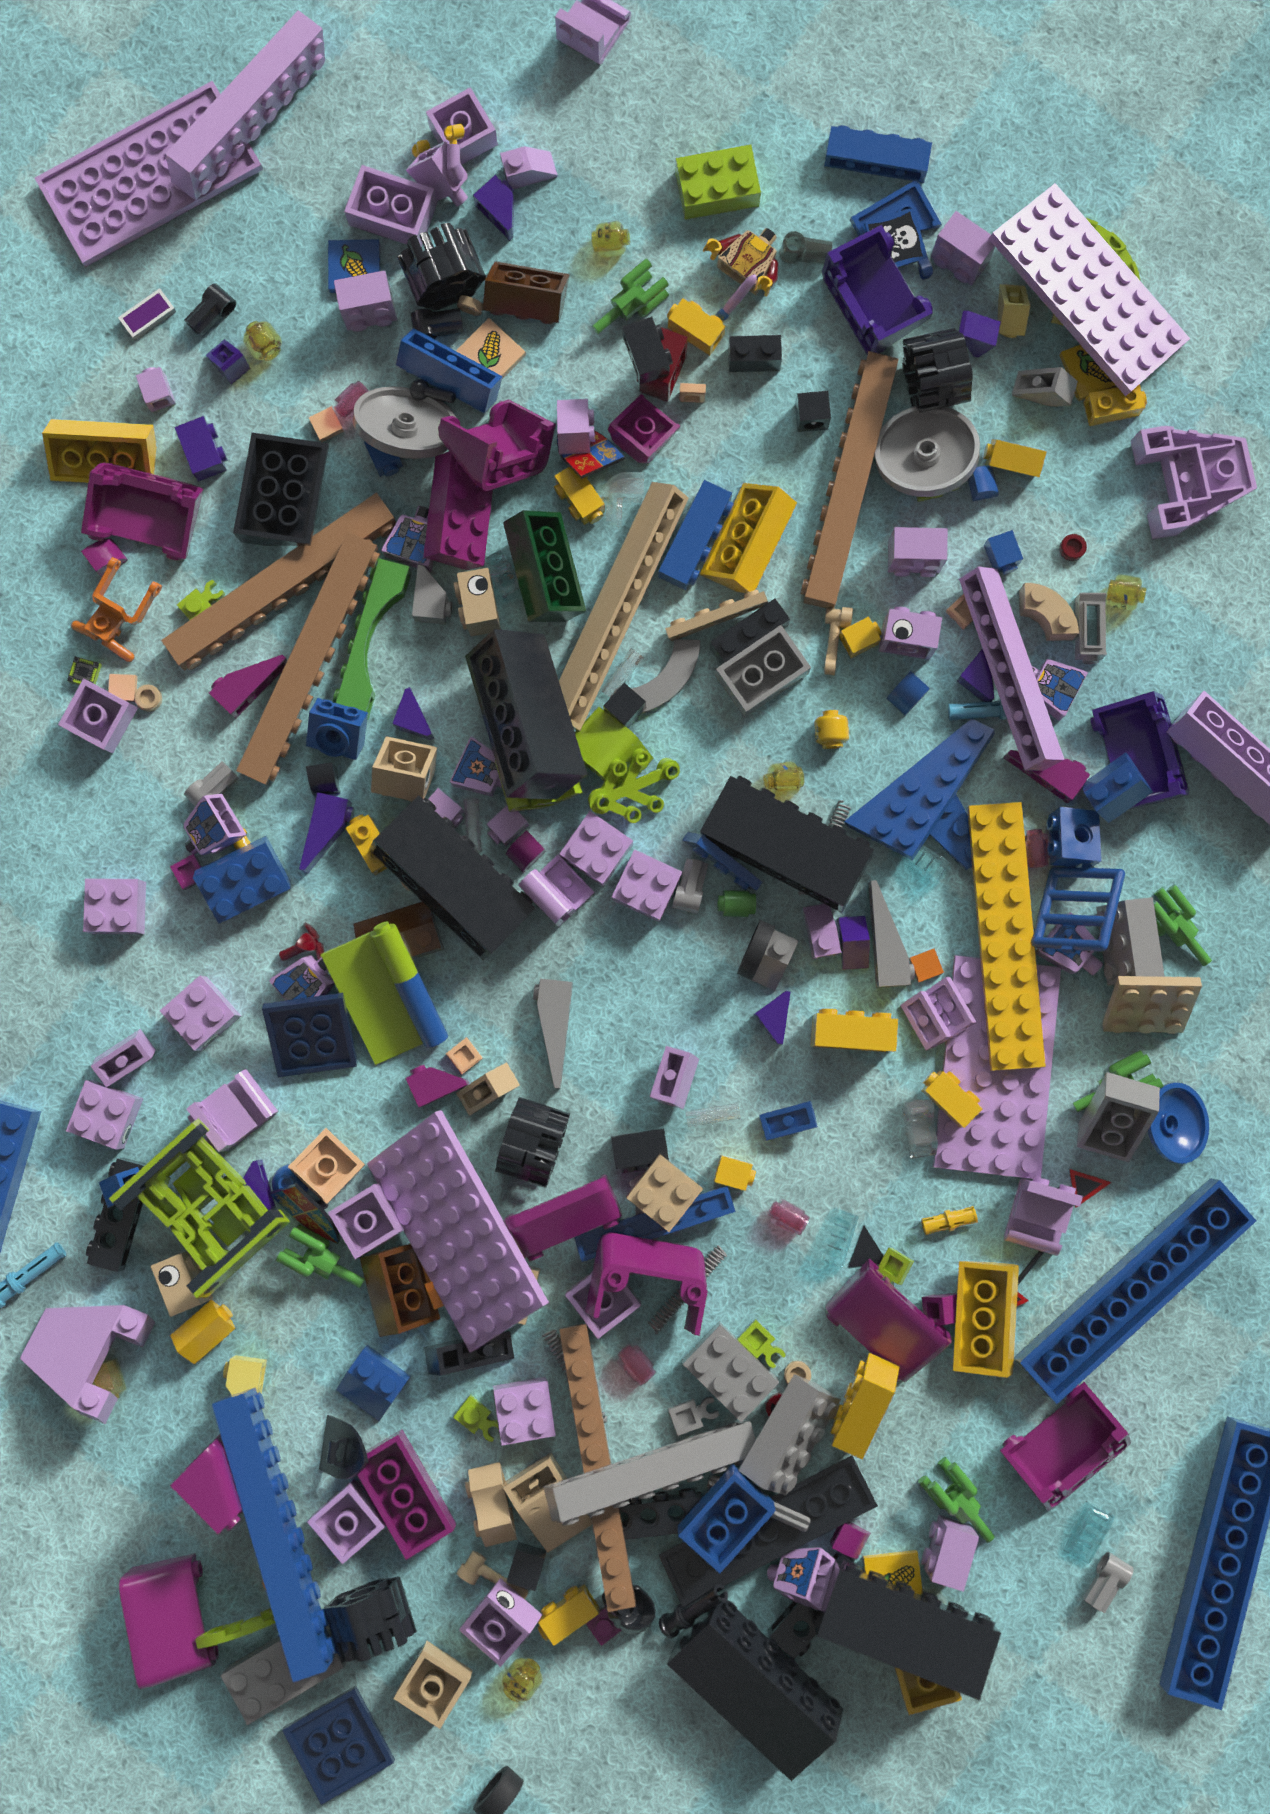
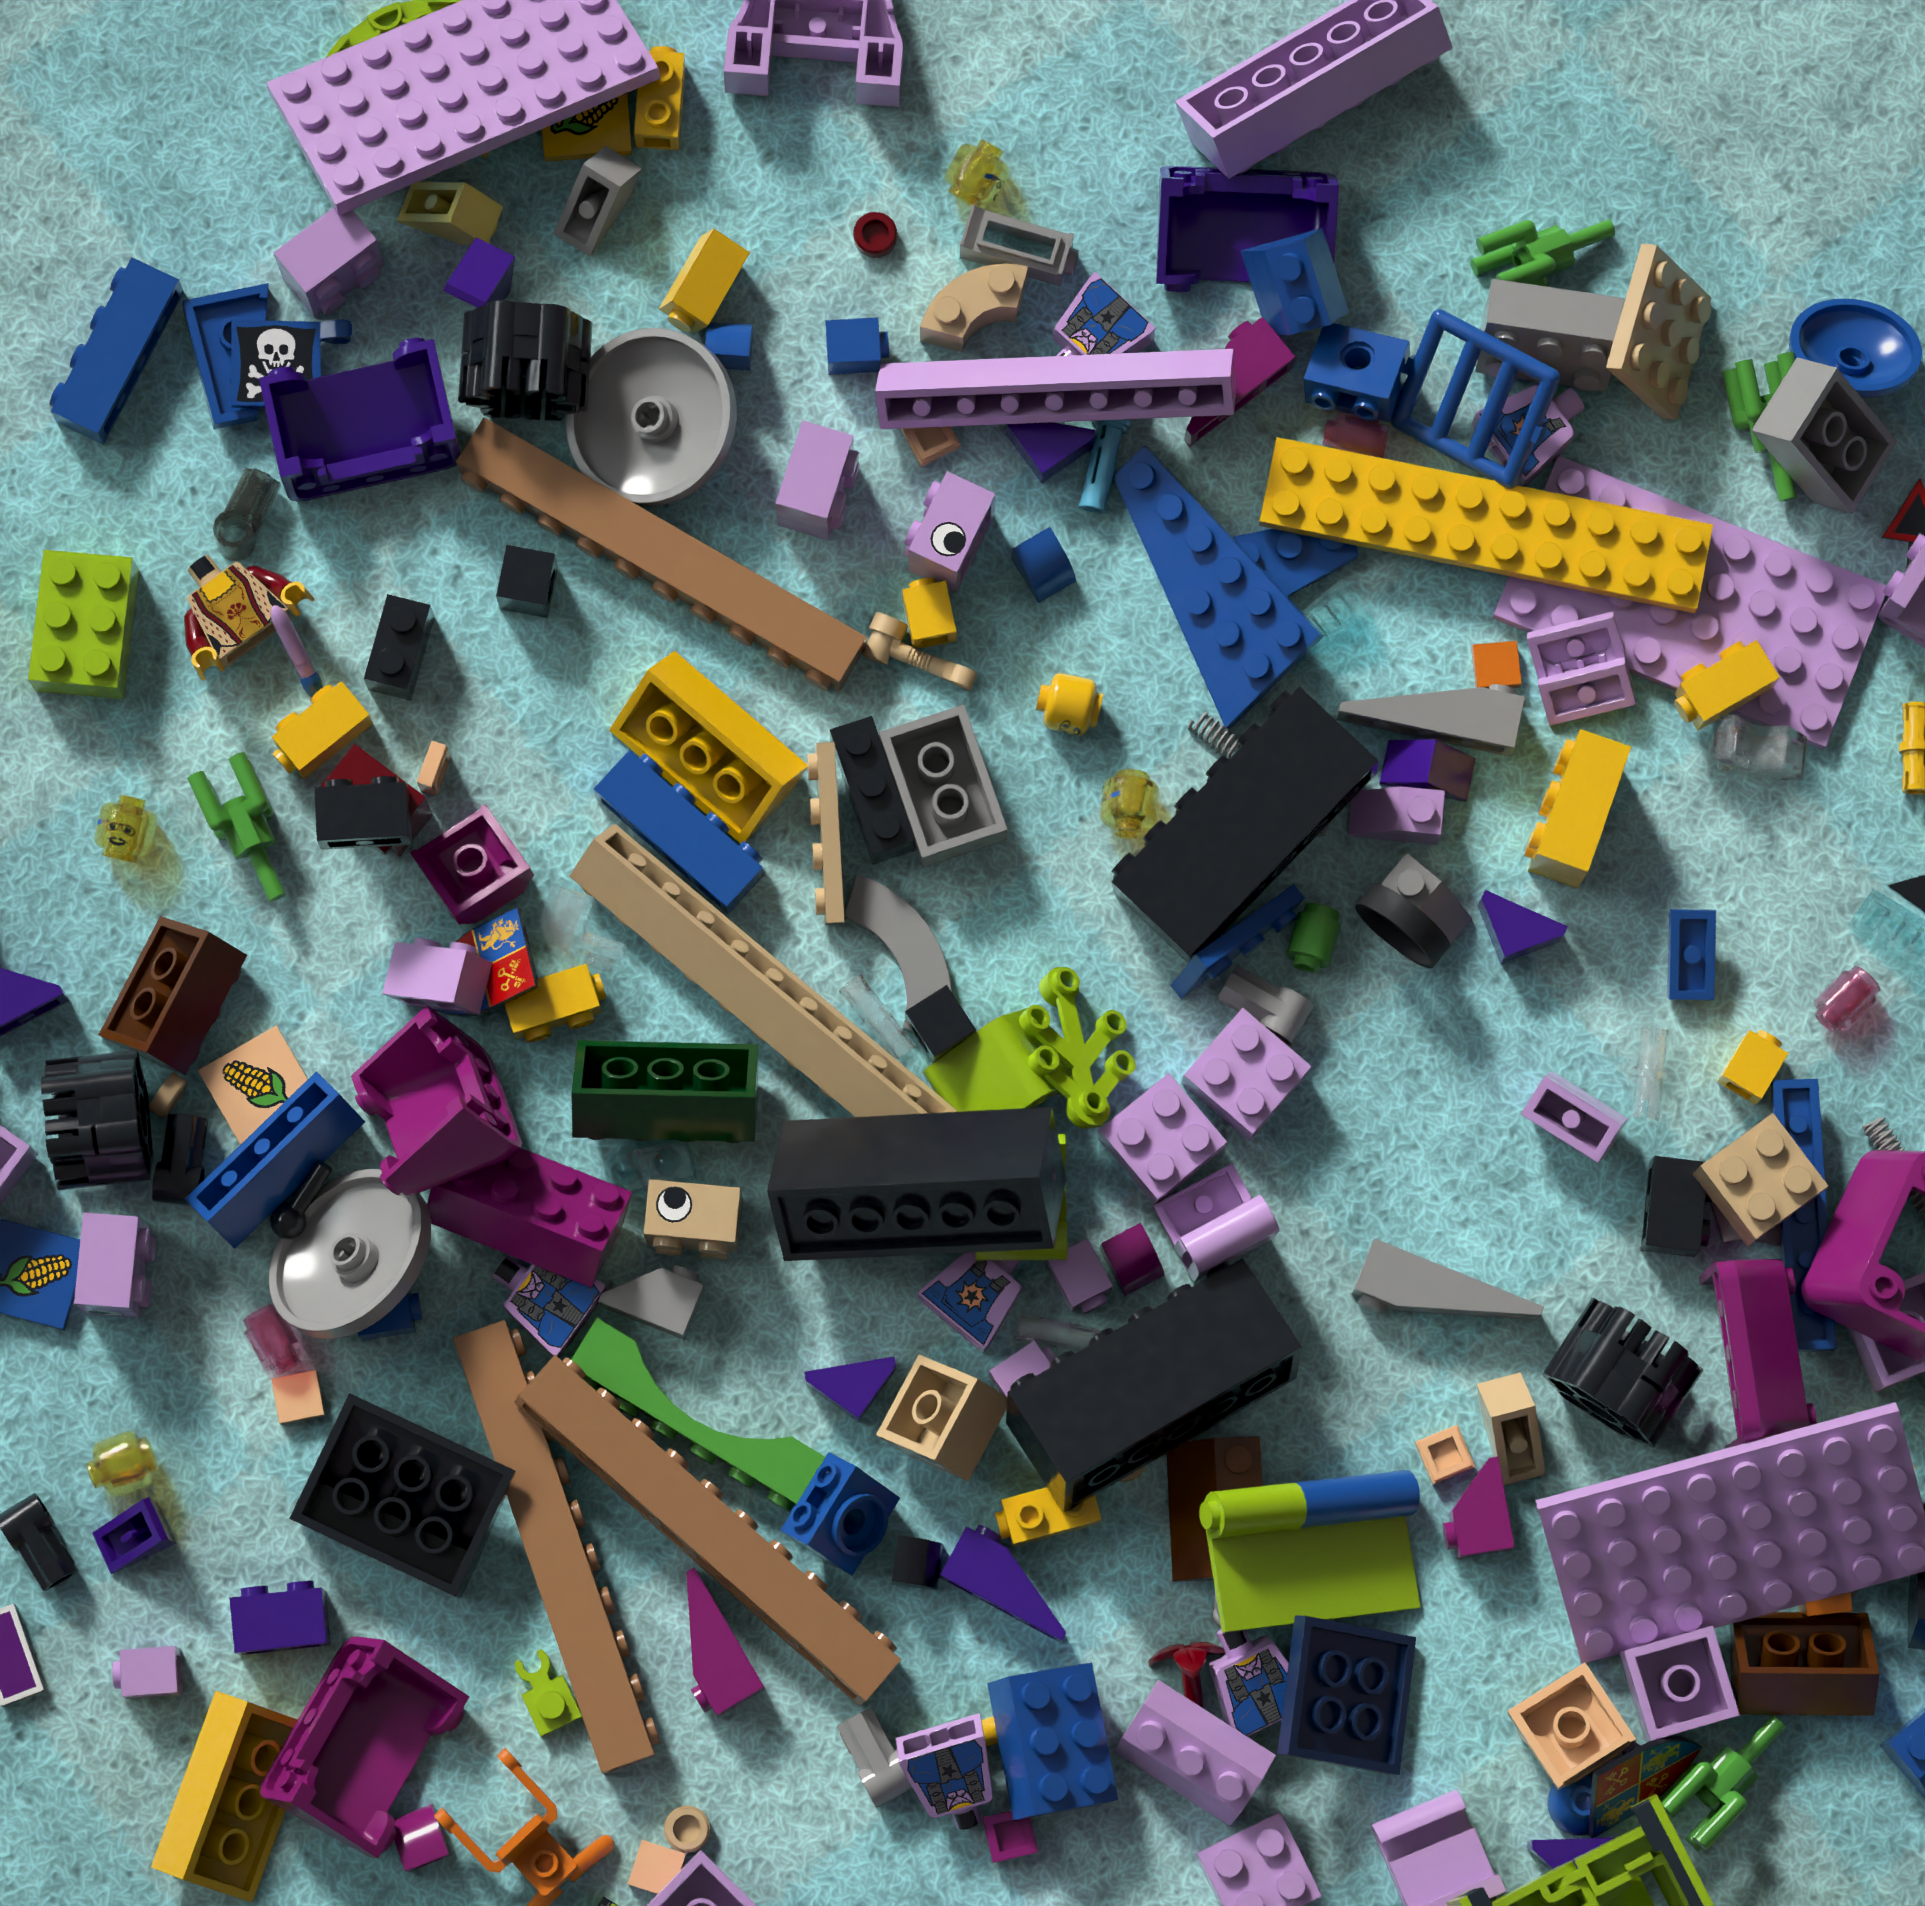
camera: 80 degrees left, 5 degrees down
(258, 959) = (1194, 1753): none -> lavender slope

